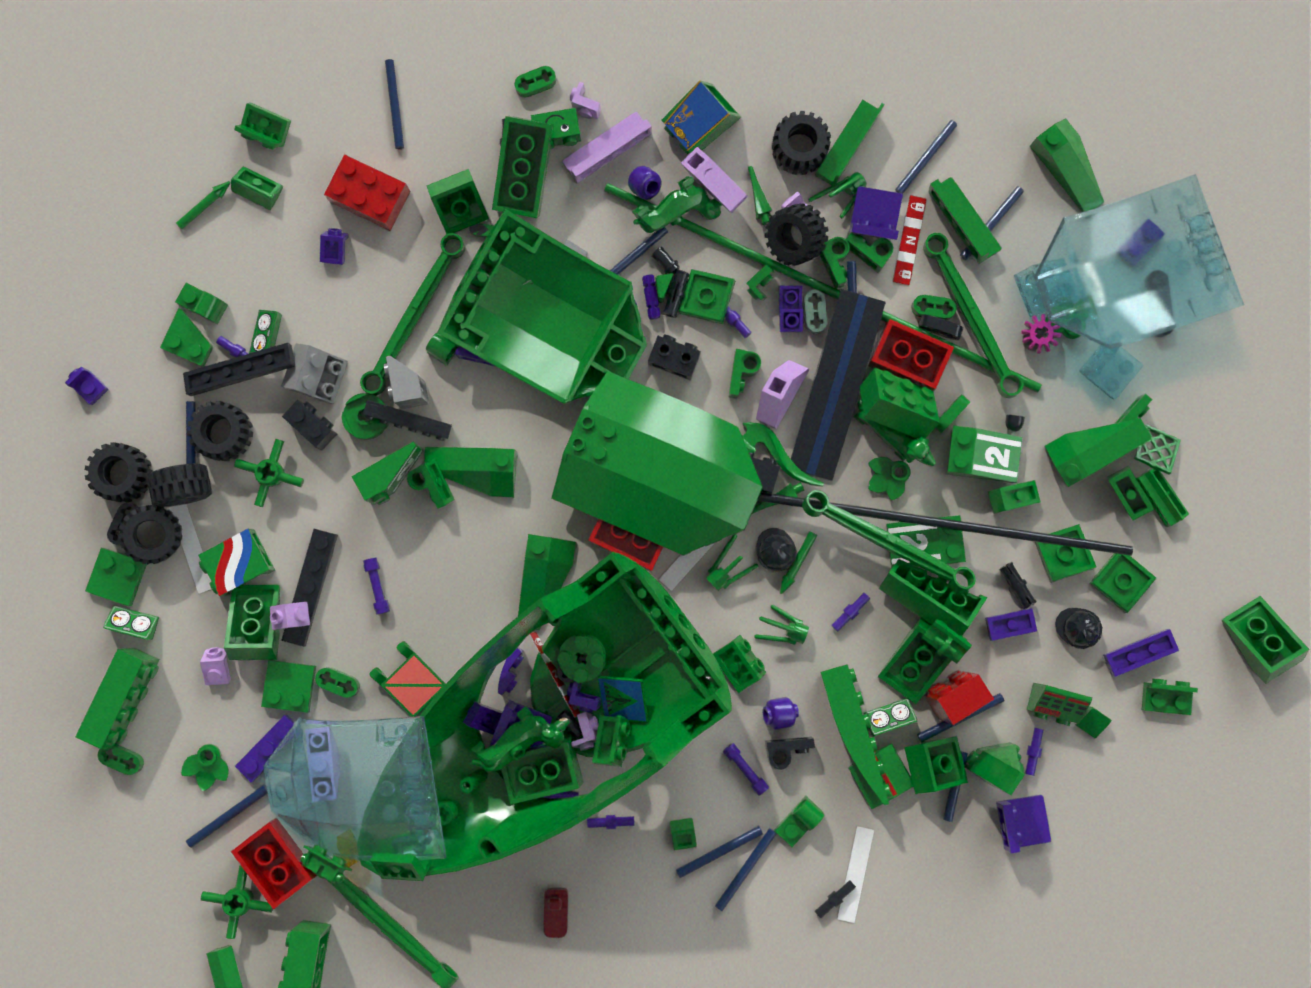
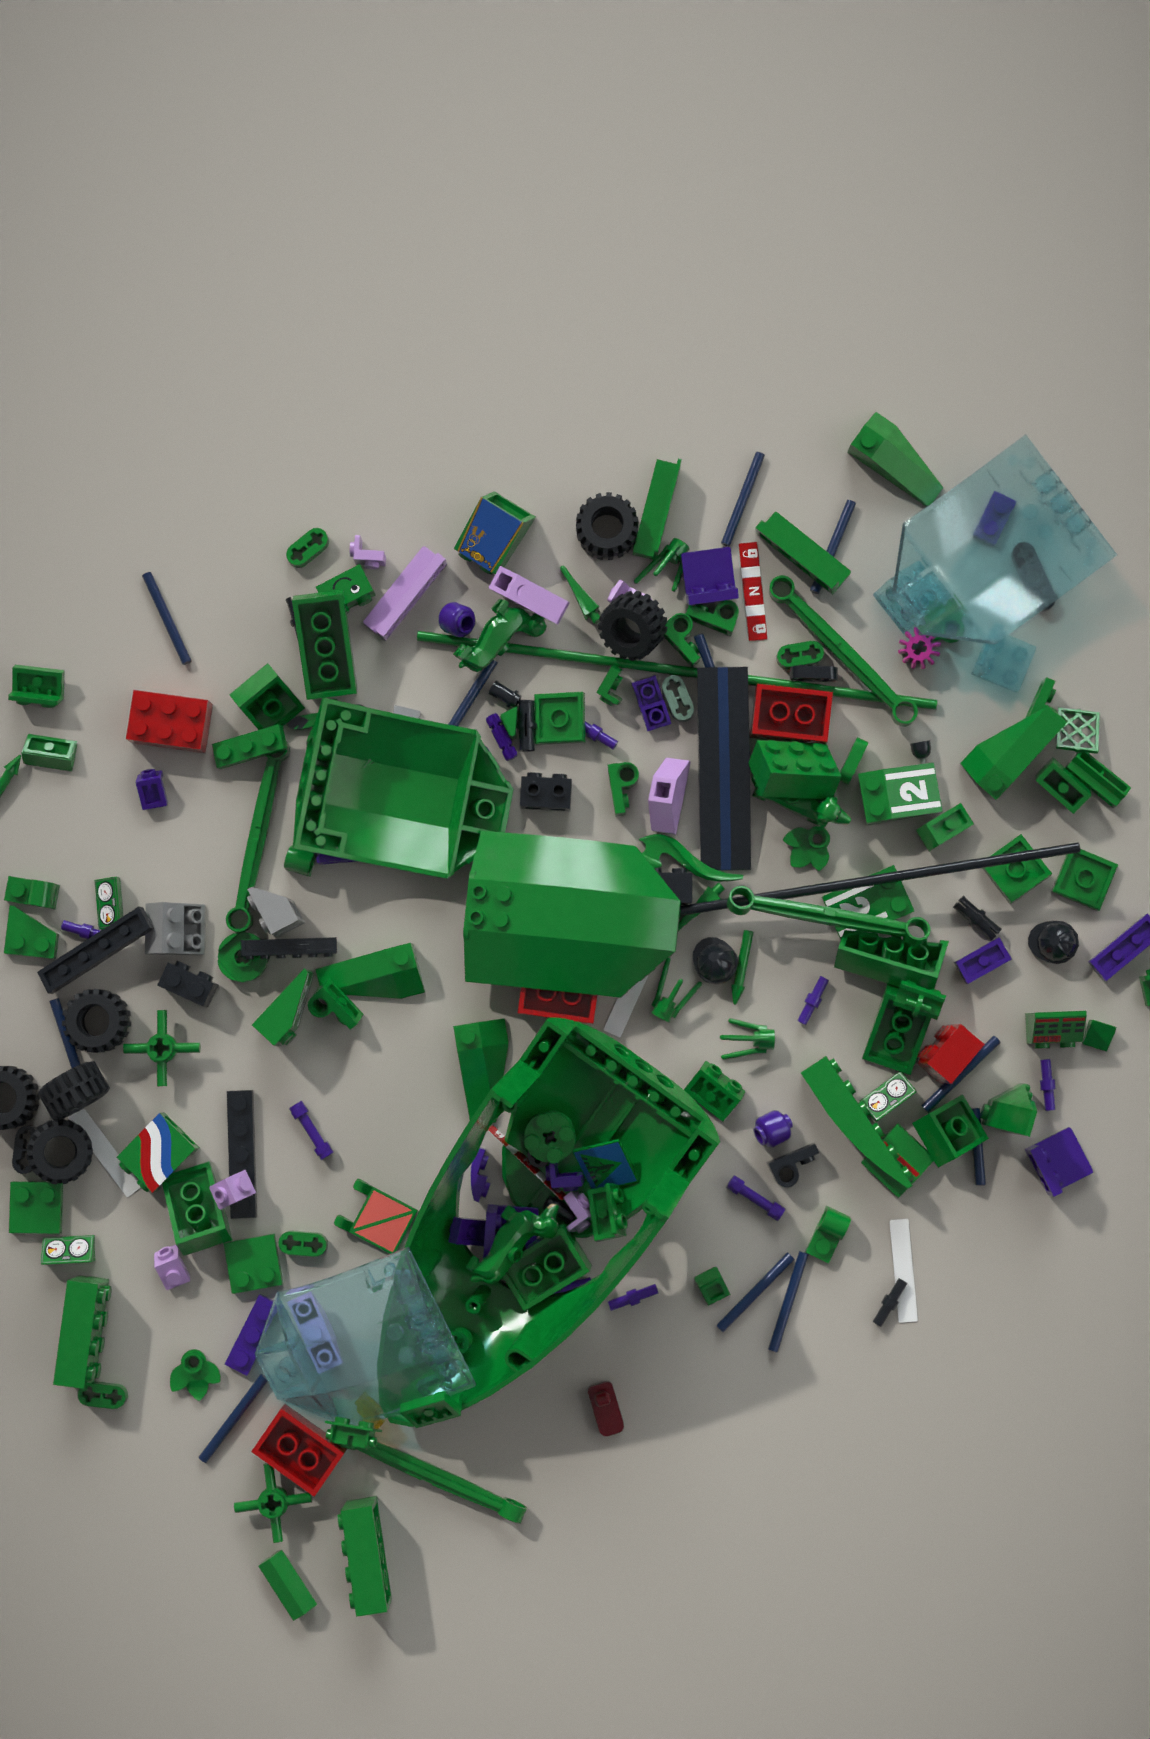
camera: 10 degrees left, 0 degrees up
(429, 236) = (249, 746): none -> green plate

